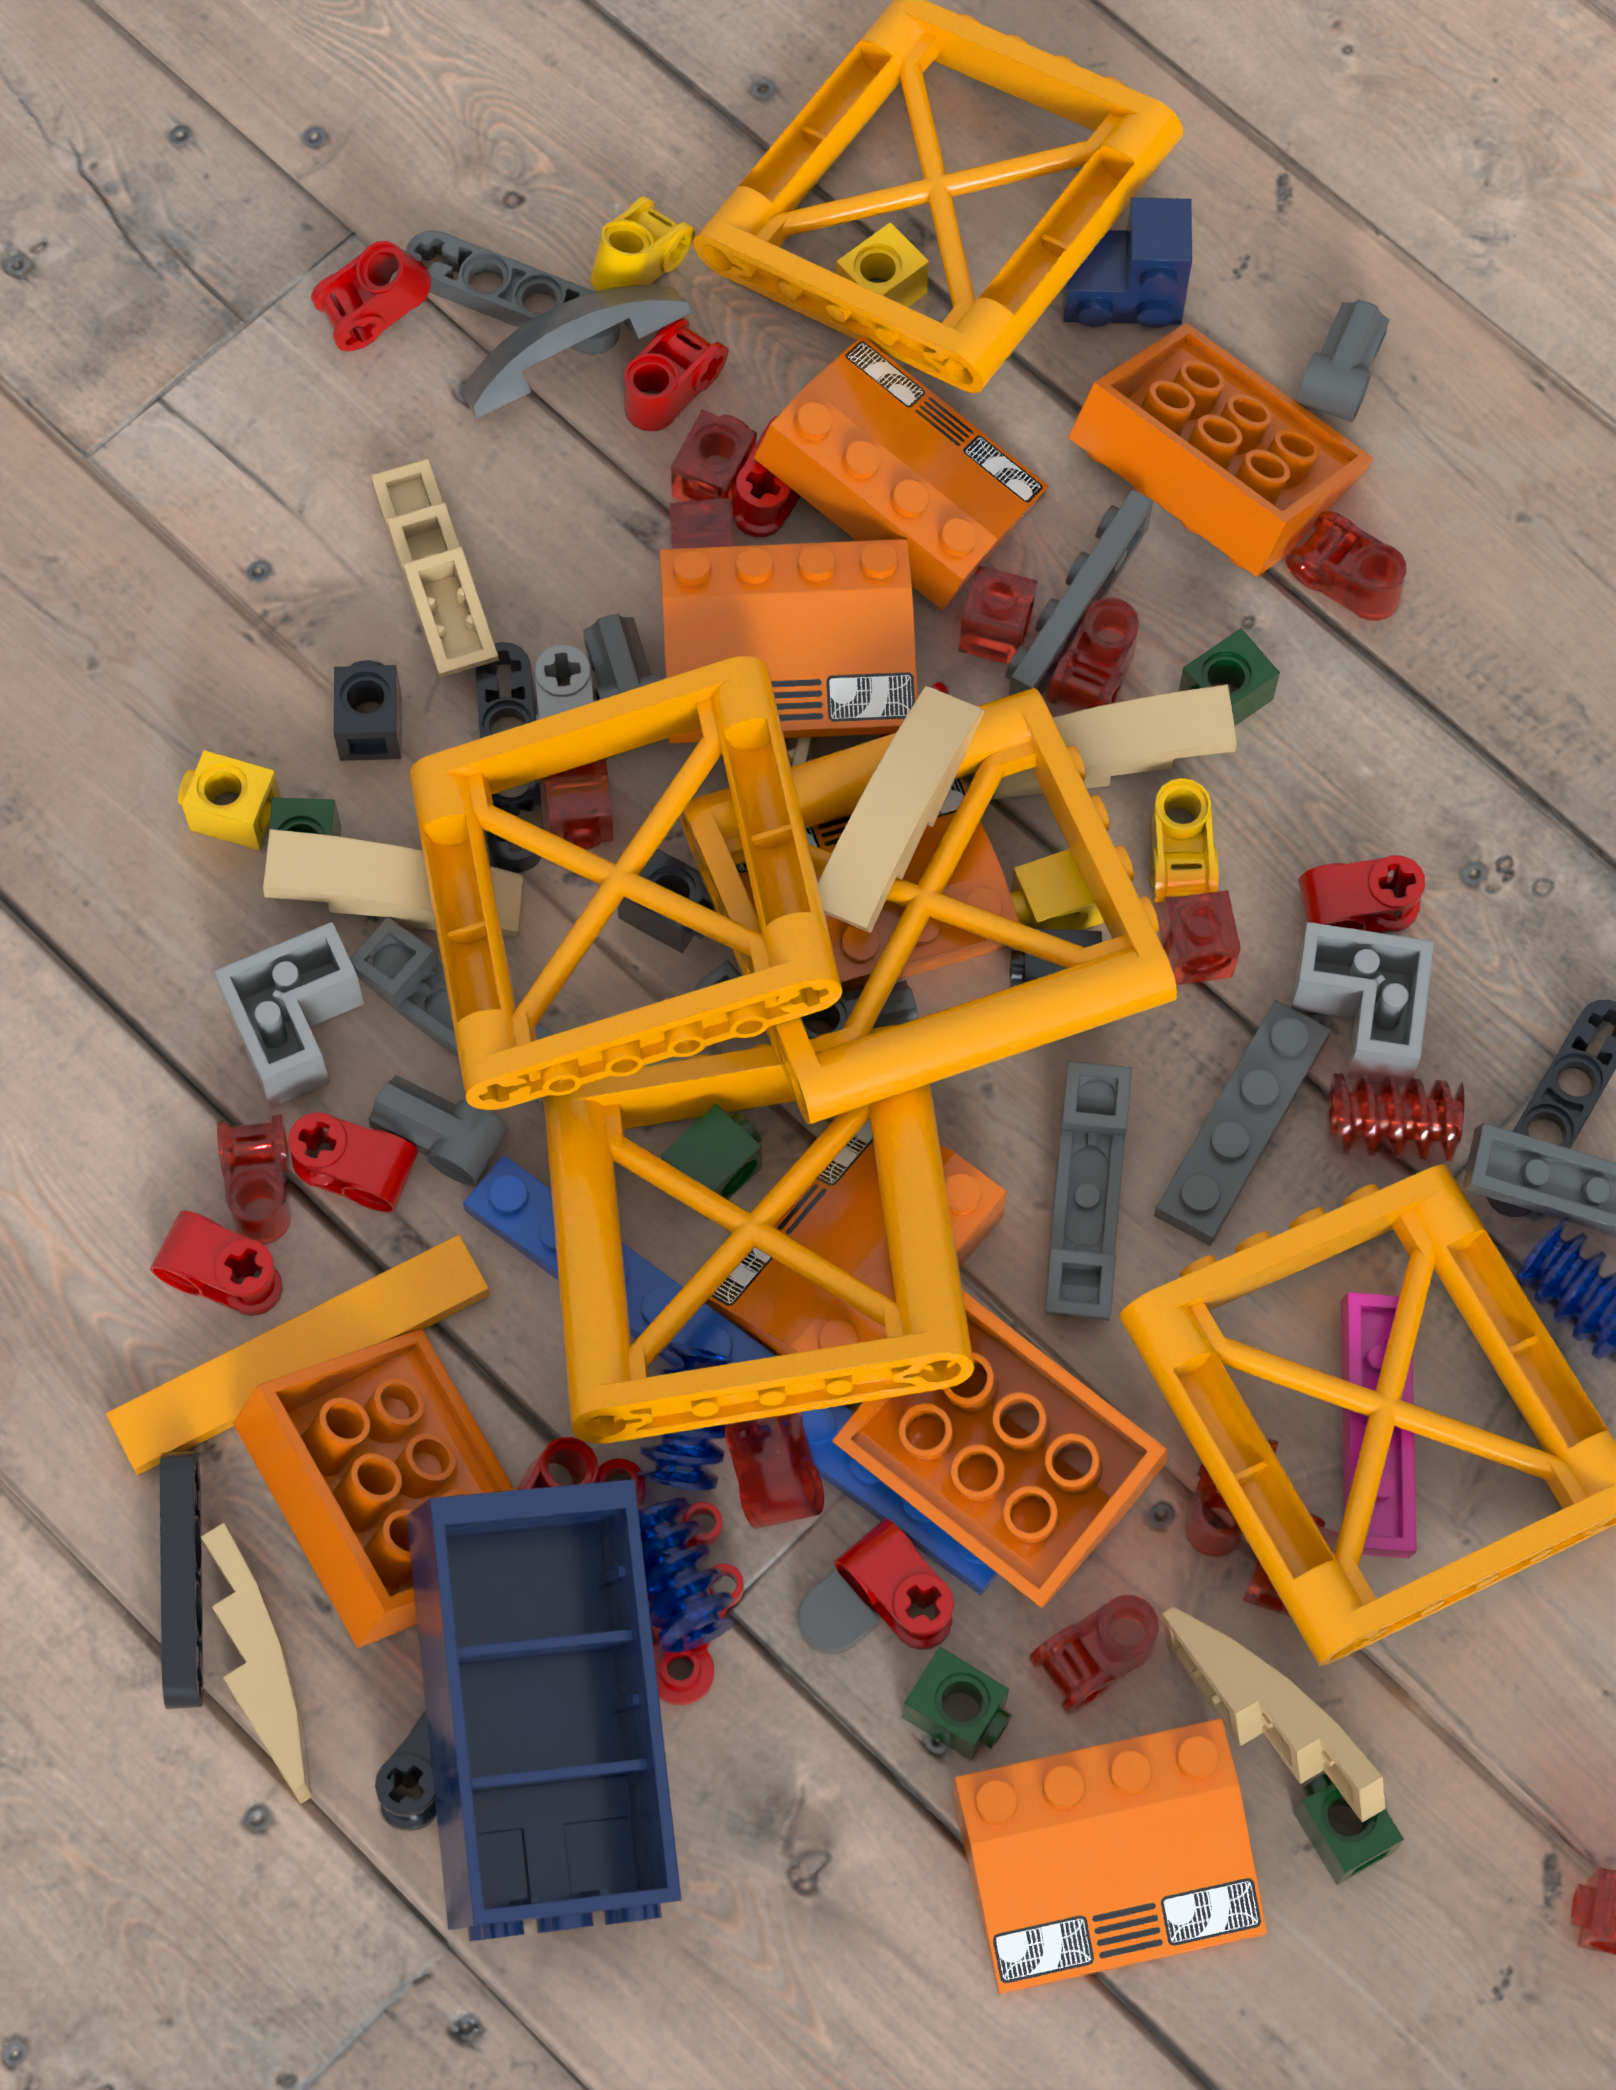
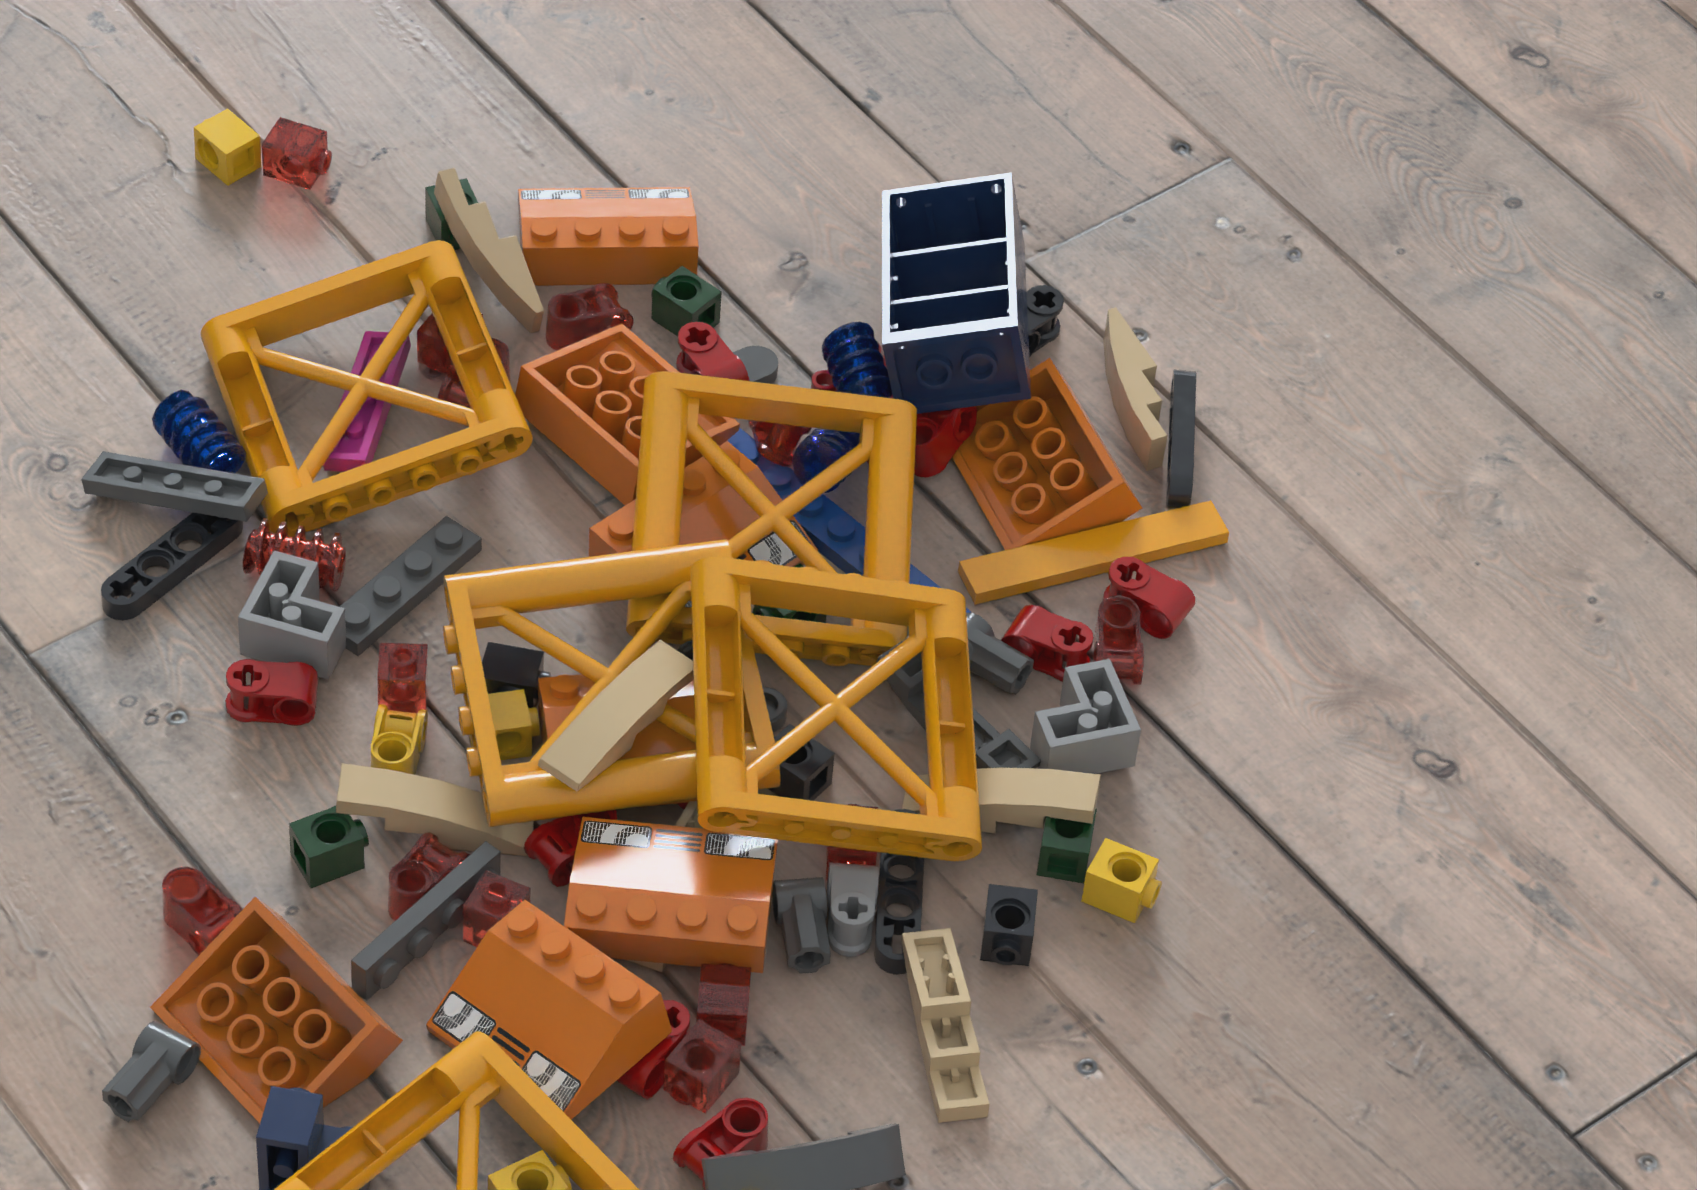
camera: 175 degrees left, 20 degrees down
(1087, 1191) = (540, 523): dark grey slope -> none

